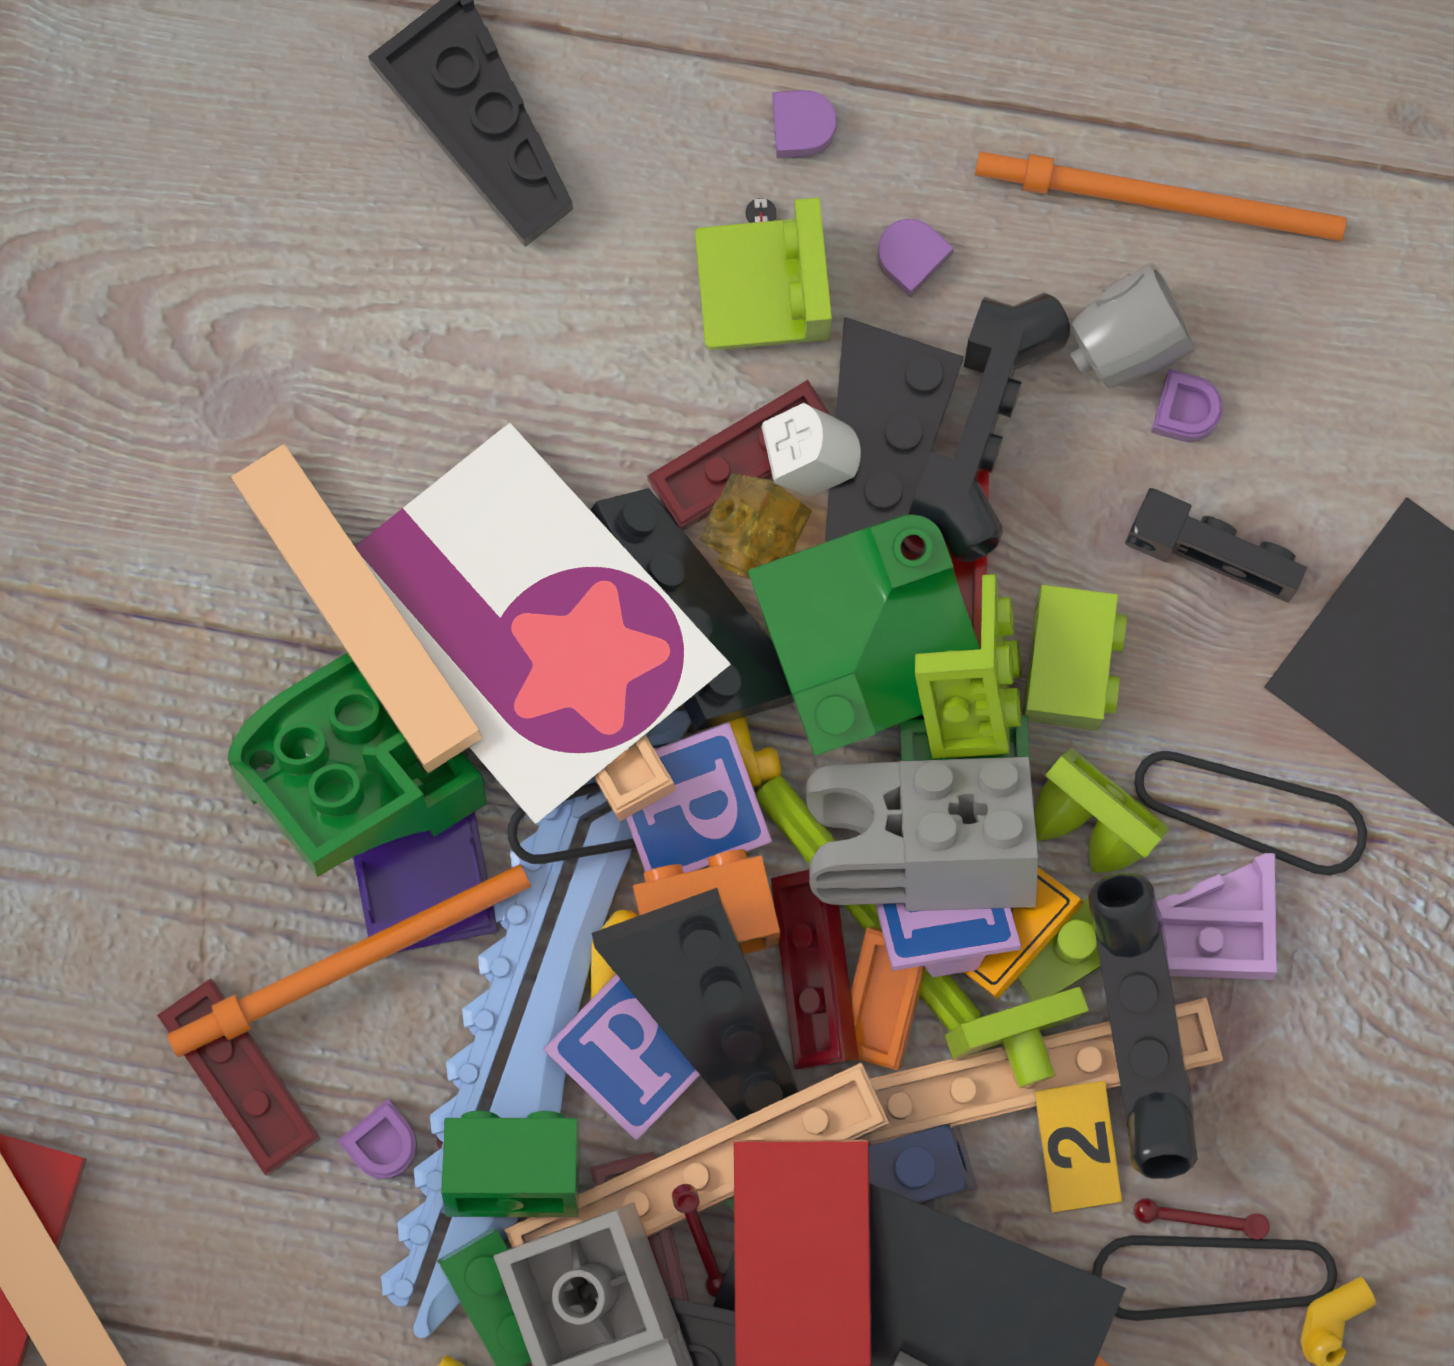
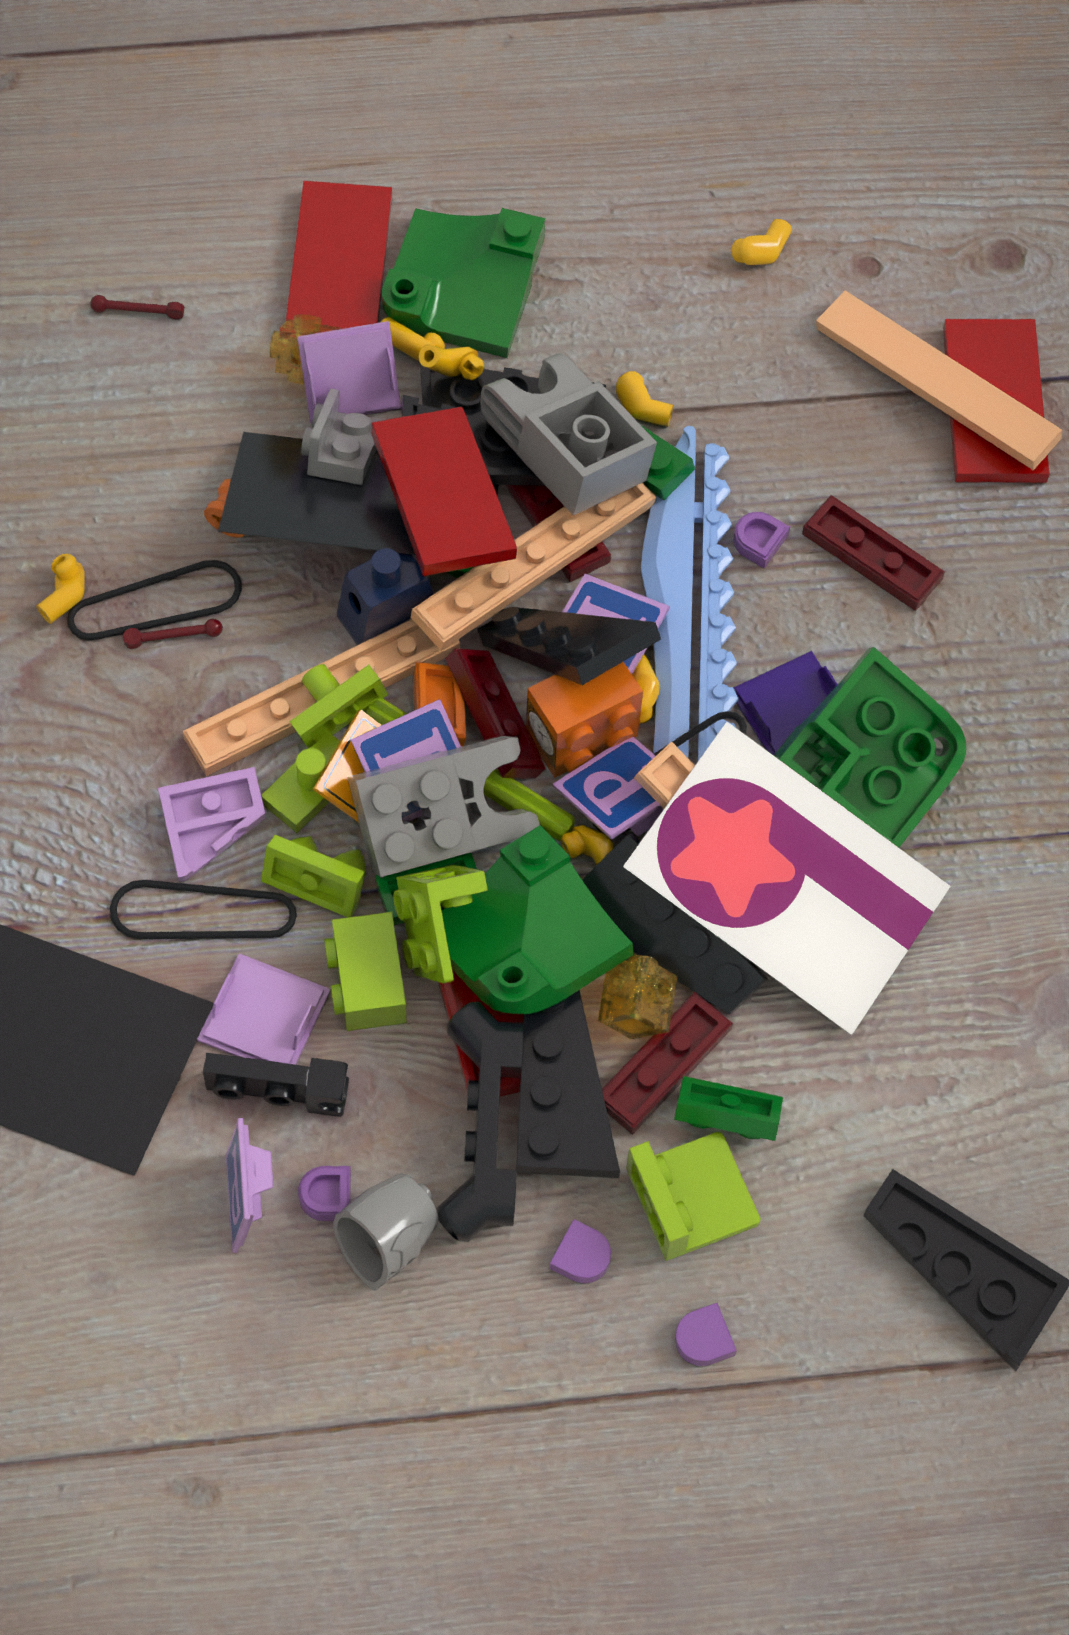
camera: 160 degrees right, 15 degrees down
(234, 1015) = (888, 577): orange bar -> none
(357, 608) = (915, 856): light nougat tile -> none
(511, 1165) = (665, 520): green brick -> none
(685, 1201) = (537, 528): dark red hinge -> none
(688, 367) = (728, 1108): none -> green plate
(760, 210) = (713, 1256): black piece -> none
(810, 450) = (613, 1050): white piece -> none
(1041, 174) = (496, 1347): orange bar -> none
(1078, 1146) = (272, 653): yellow sticker -> none
(1144, 1025) = (226, 689): black plate -> none
(1206, 654) = (263, 1013): none -> lavender piece
(1284, 410) = (247, 1176): none -> lavender piece

